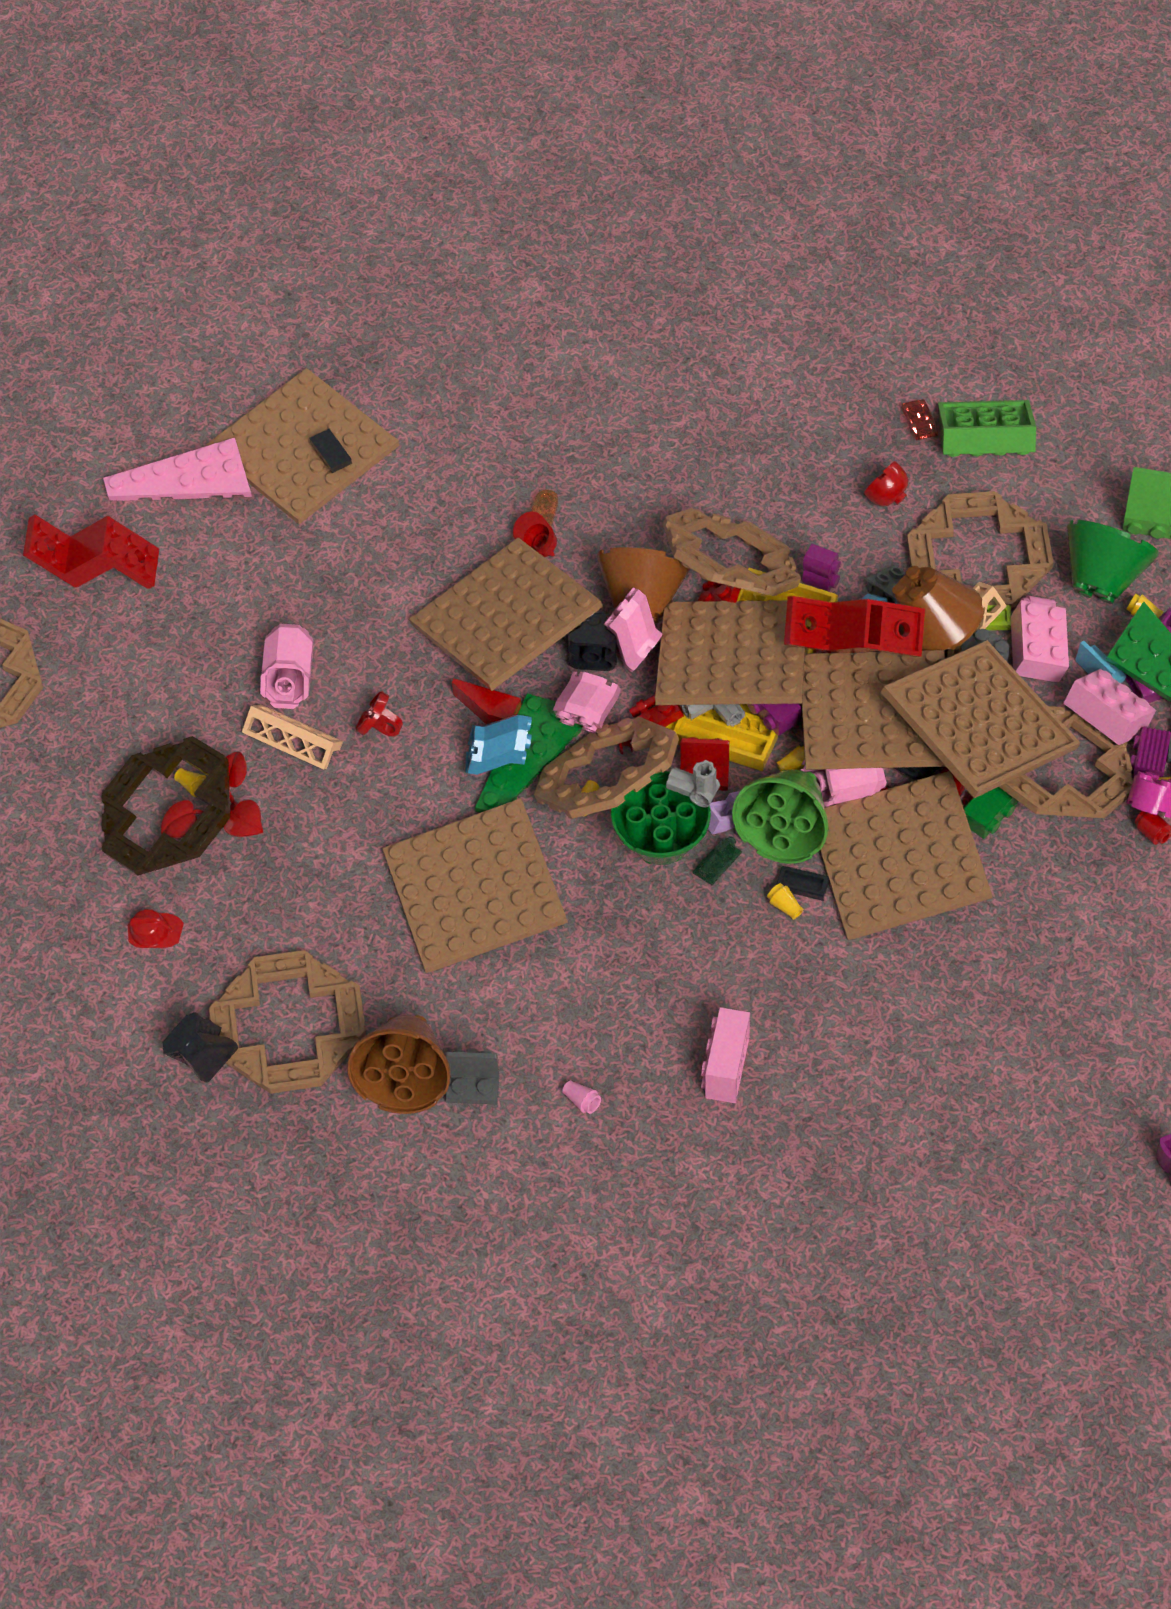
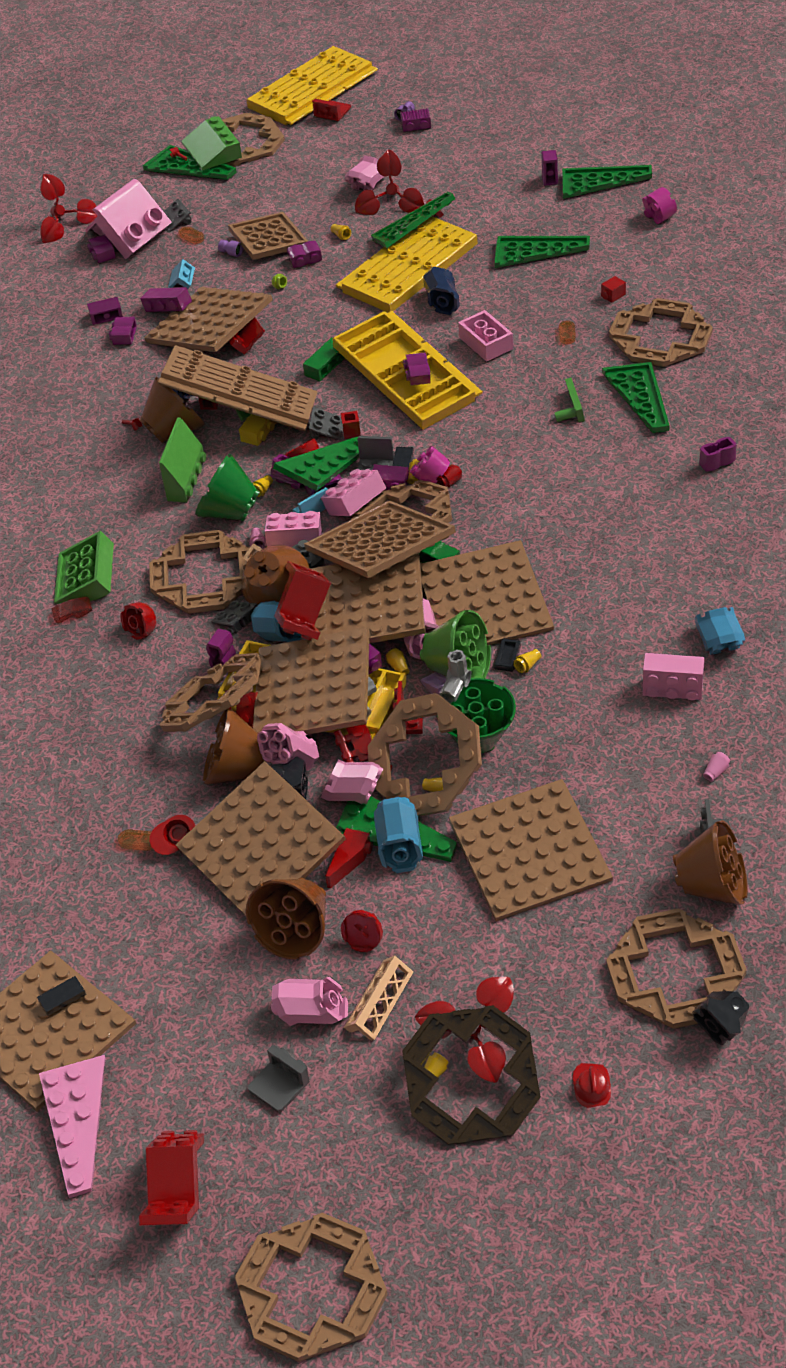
camera: 90 degrees left, 10 degrees down
(201, 645) = (279, 1079): none -> dark grey bracket
(400, 644) = (288, 916): none -> dark orange cone
(810, 1120) = (720, 630): none -> dark azure brick

